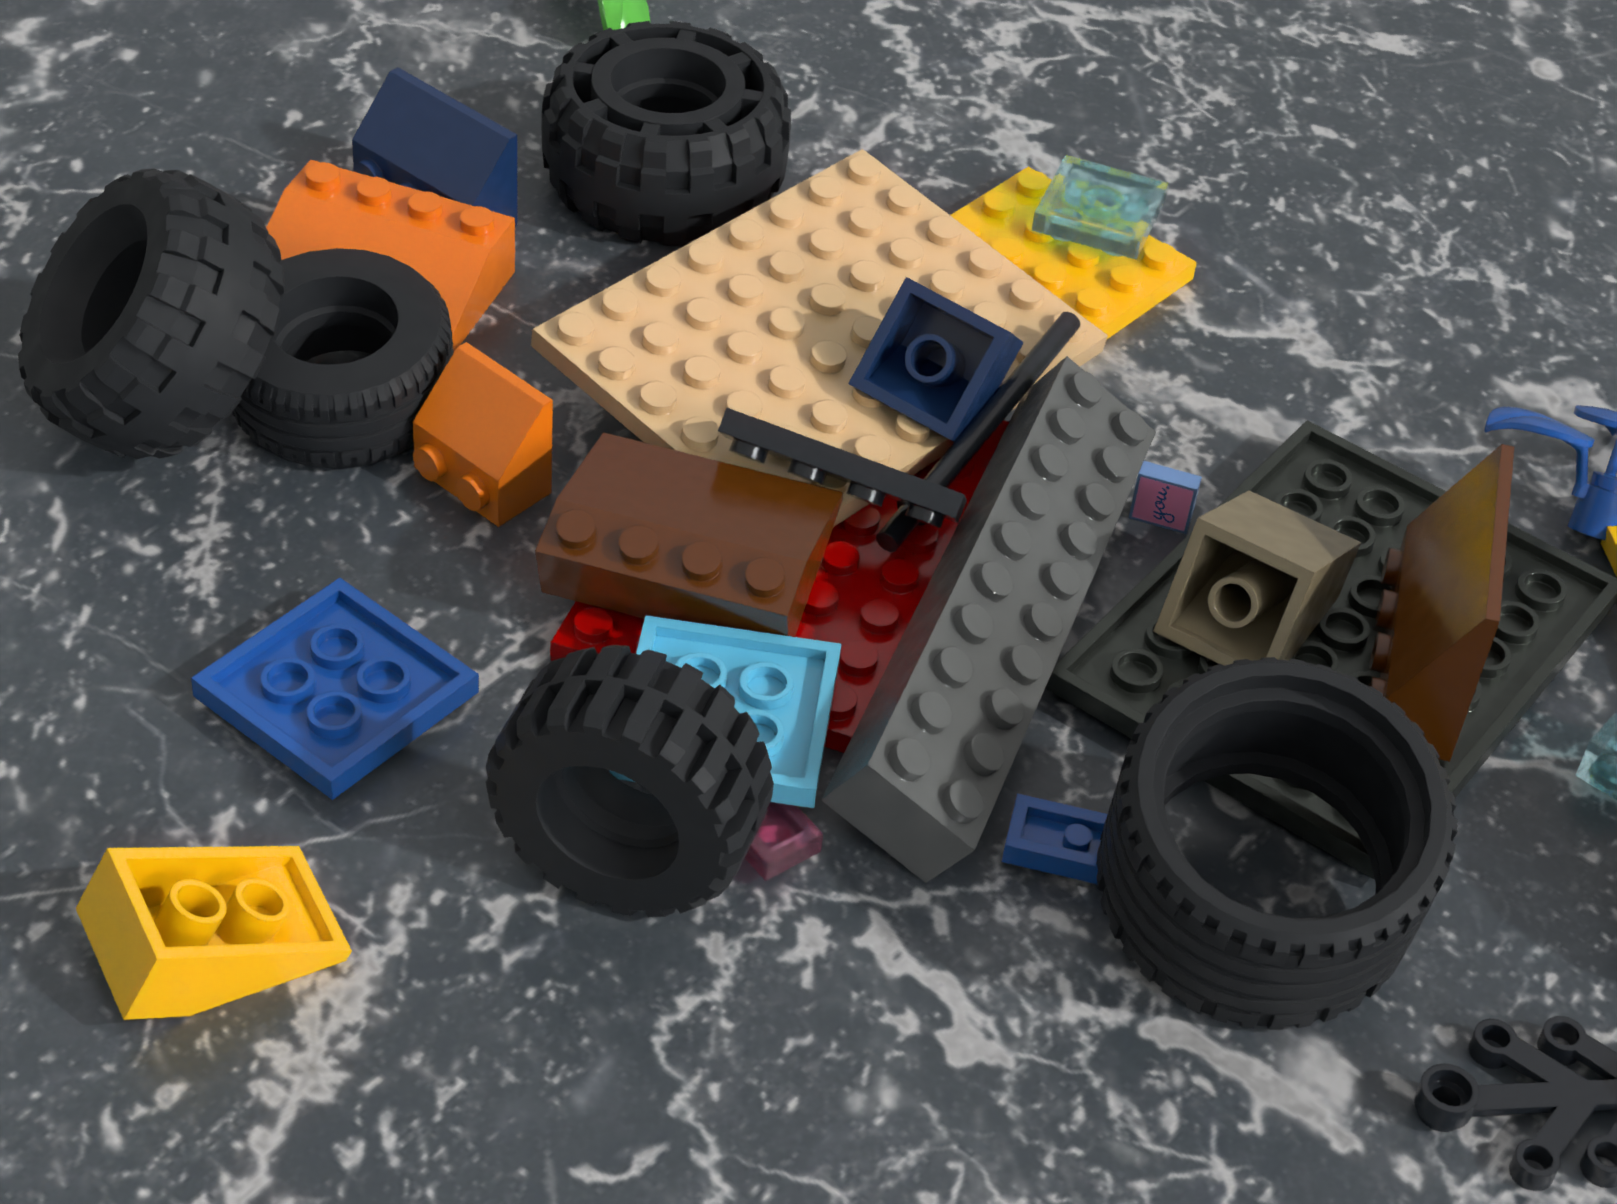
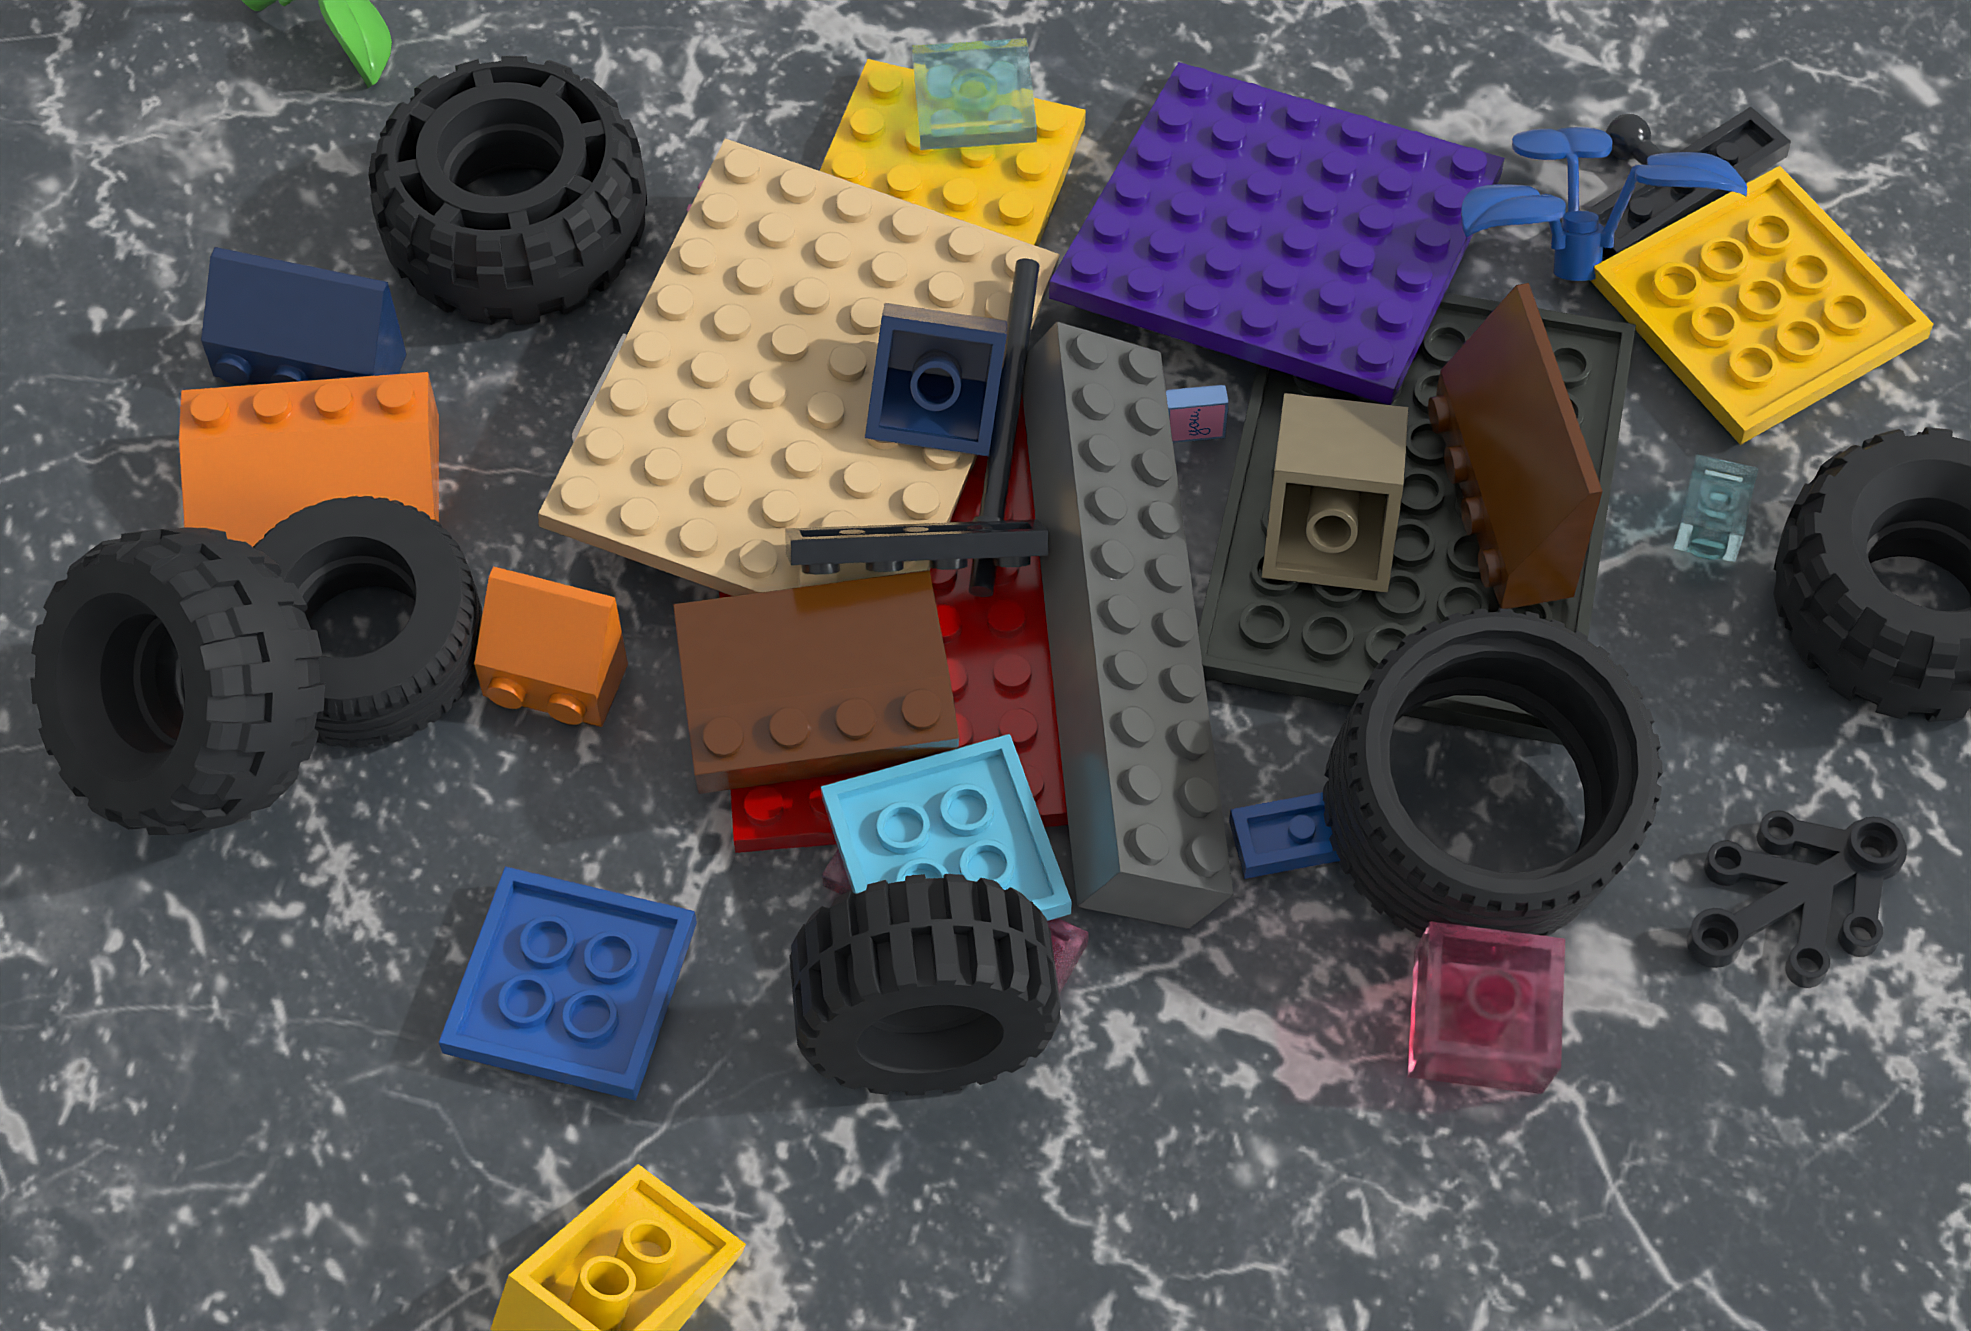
camera: 20 degrees left, 15 degrees up
(1171, 1047) = (1487, 1008): none -> clear pink brick
(1316, 396) = (1277, 232): none -> dark purple plate

